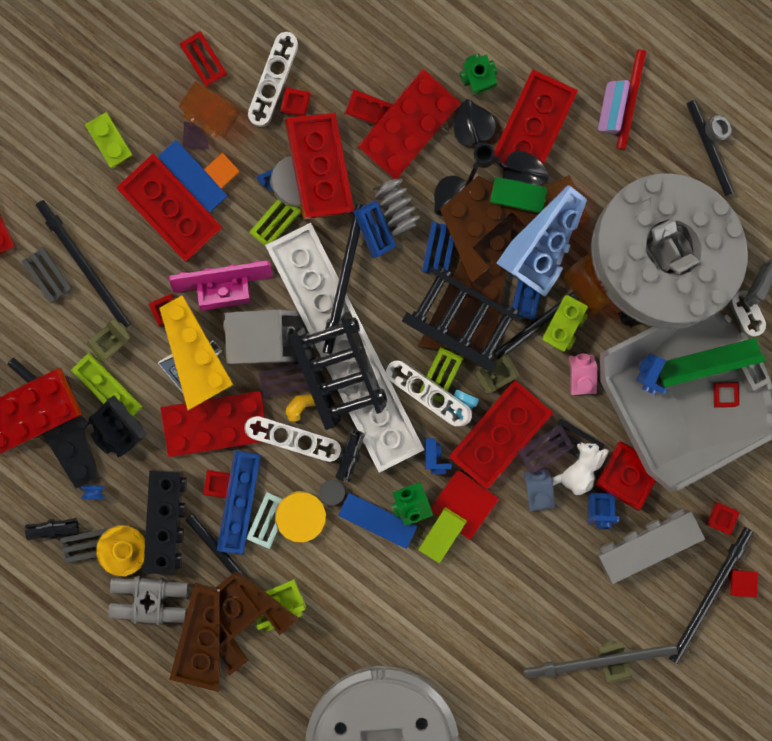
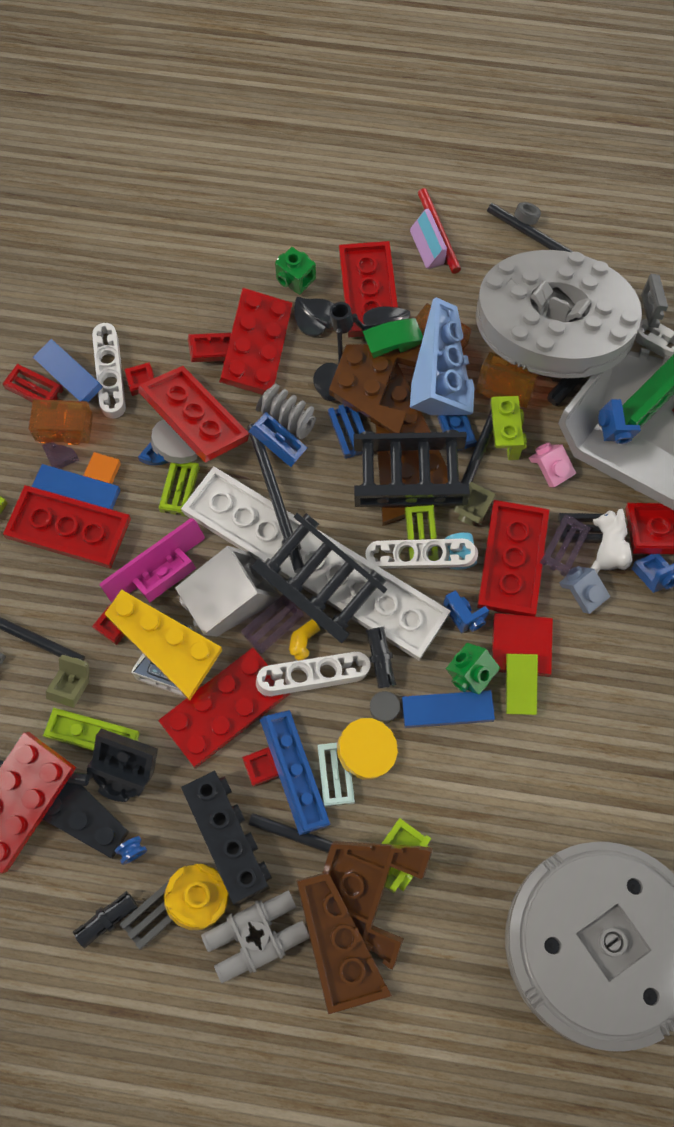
camera: 30 degrees left, 20 degrees down
(237, 64) = (67, 371): none -> tile

